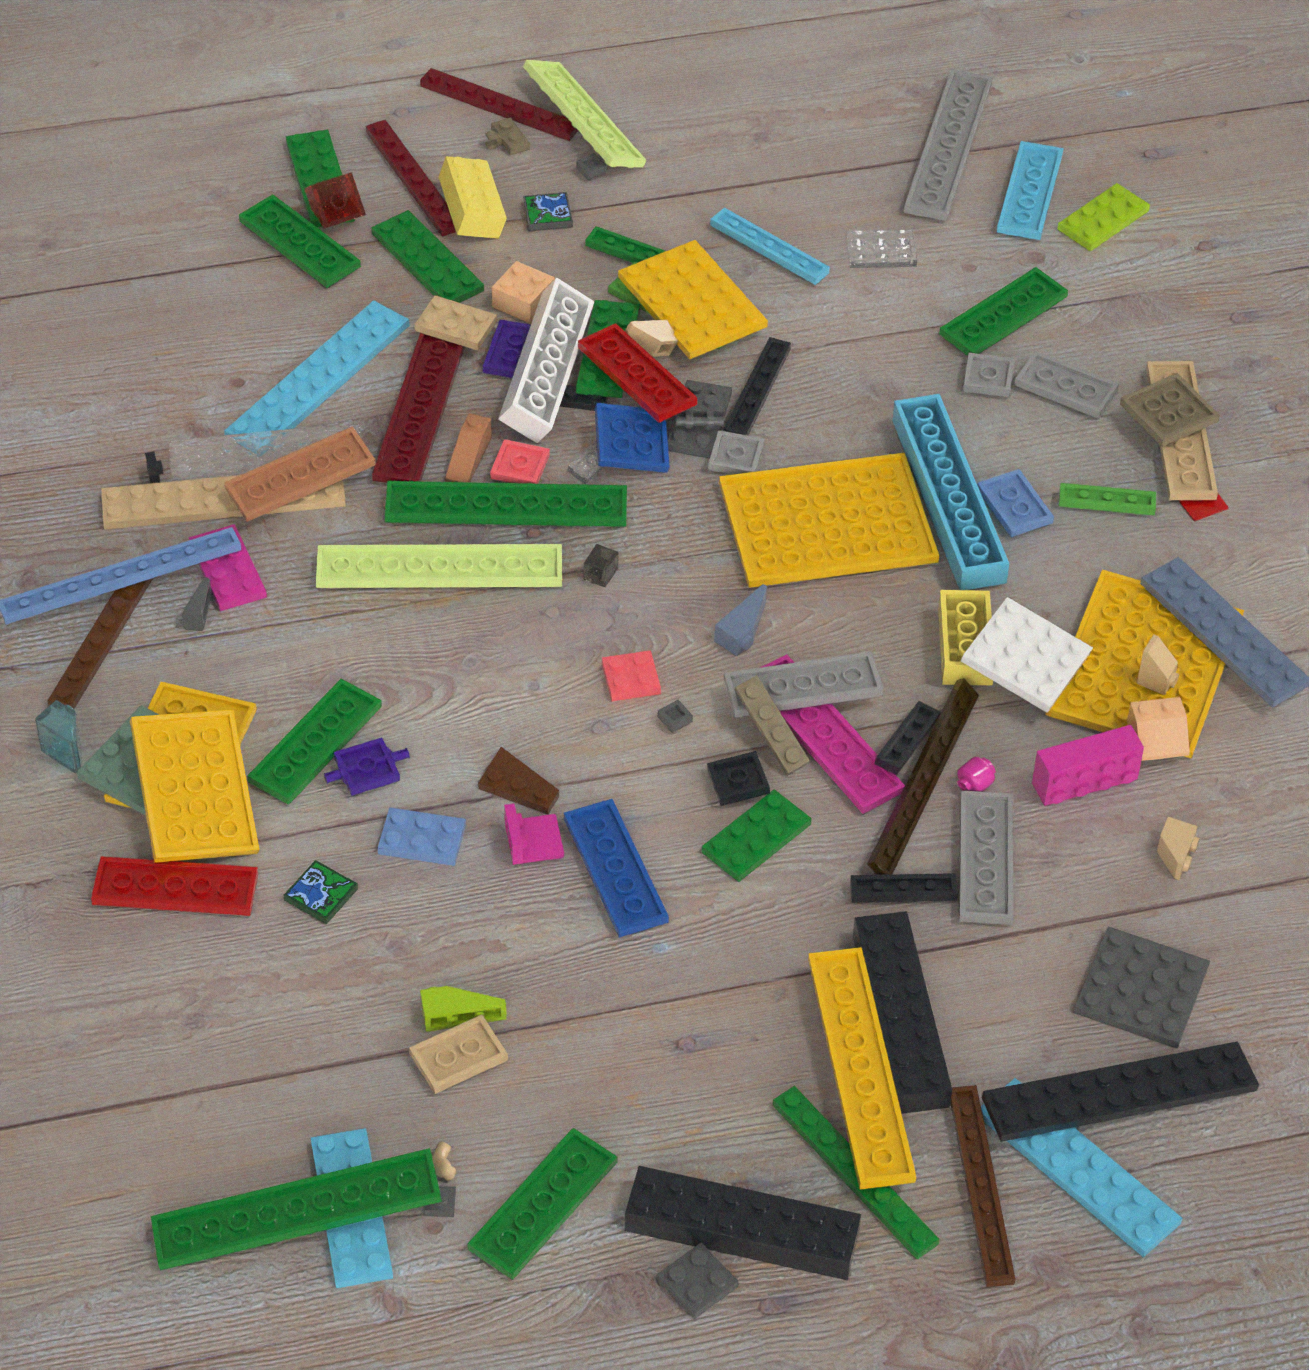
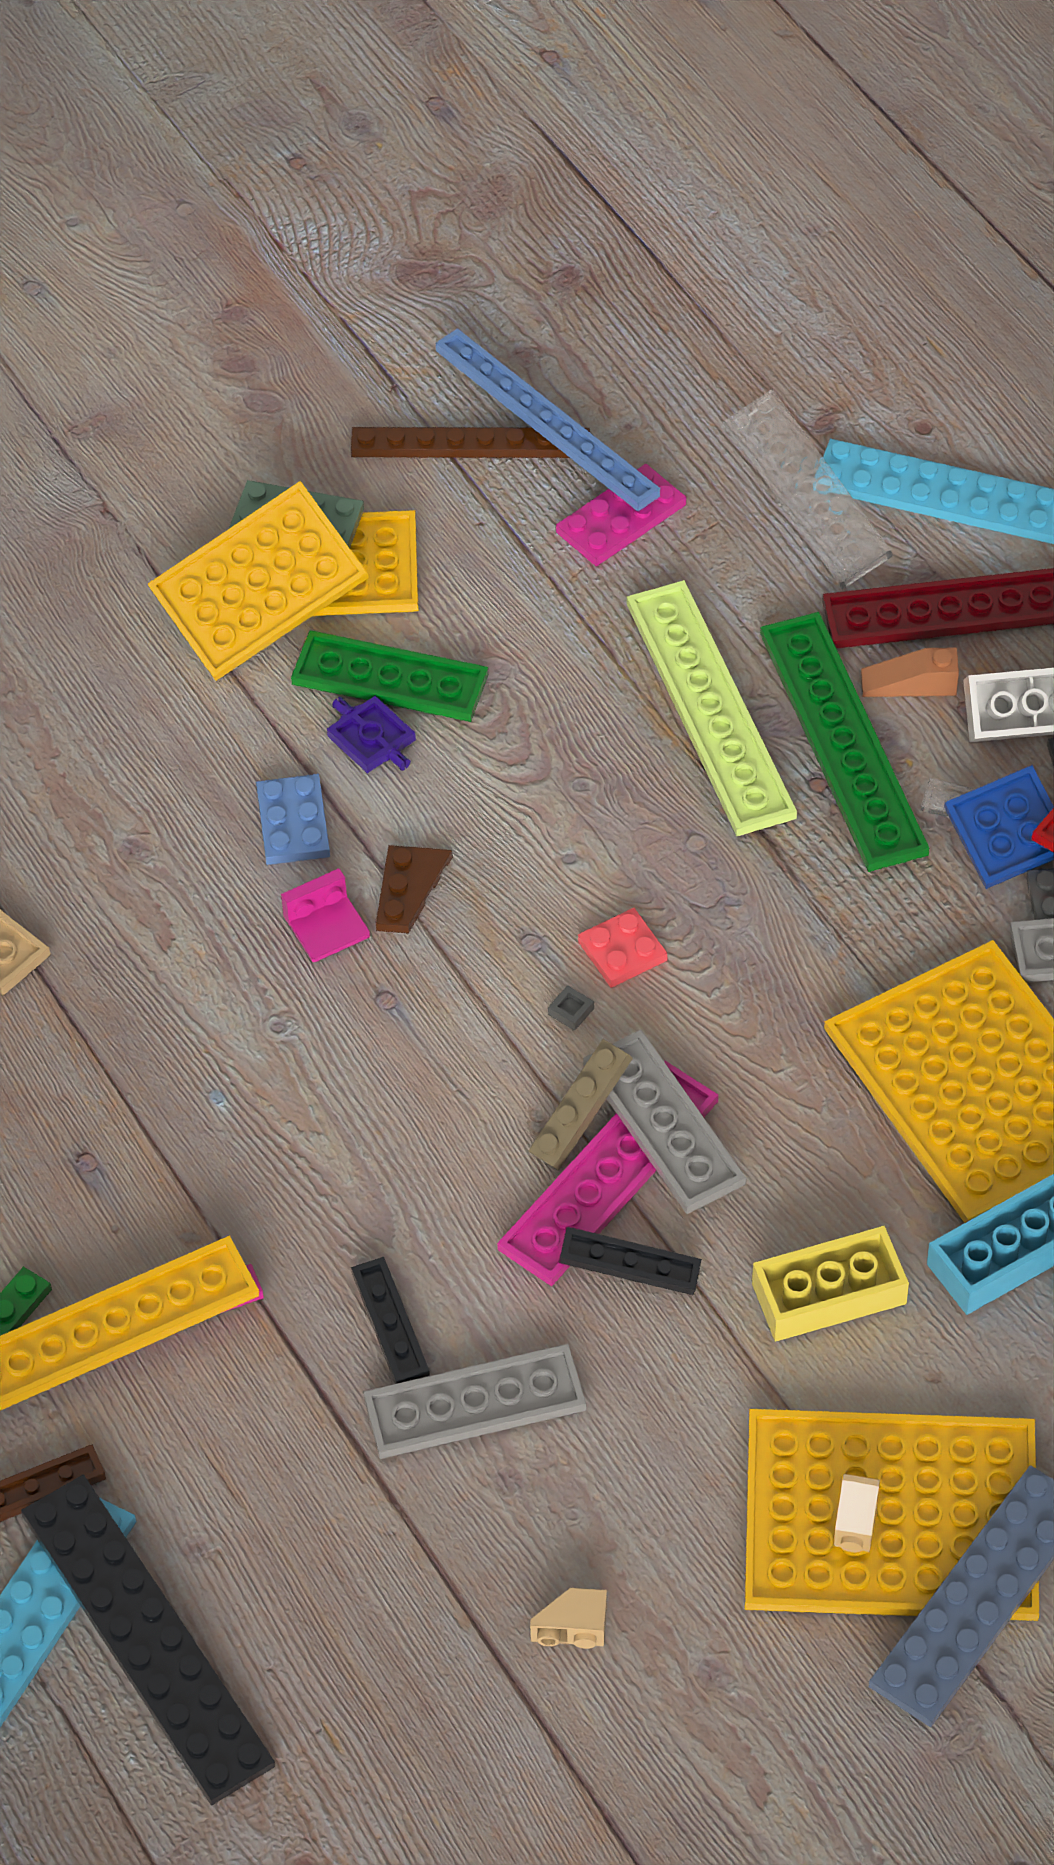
camera: 75 degrees right, 5 degrees up
(60, 735) = (293, 450): clear light blue slope -> none
(153, 467) = (734, 395): black plate -> none
(175, 886) = (136, 624): red plate -> none
(193, 502) = (729, 477): tan plate -> none
(196, 610) = (539, 507): dark grey slope -> none
(299, 473) = (778, 522): nougat plate -> none
(320, 892) = (178, 752): tile -> none
(450, 1007) = (50, 916): lime slope -> none
(519, 463) = (917, 732): coral plate -> none
(601, 565) = (780, 861): clear smoke brick -> none
(616, 868) = (311, 1015): blue plate -> none
(738, 778) = (494, 1098): black plate -> none
(739, 627) = (754, 1036): sand blue slope -> none
(756, 835) = (420, 1146): green plate -> none
(904, 1011) = (191, 1363): black brick -> none
(923, 779) = (576, 1298): dark brown plate -> none
(976, 775) = (600, 1354): dark pink head -> none
(1026, 654) = (814, 1354): white plate -> none
(1087, 765) = (658, 1475): dark pink brick -> none
(1142, 987) = (331, 1632): dark grey plate -> none
(1160, 727) = (753, 1545): light nougat slope -> none

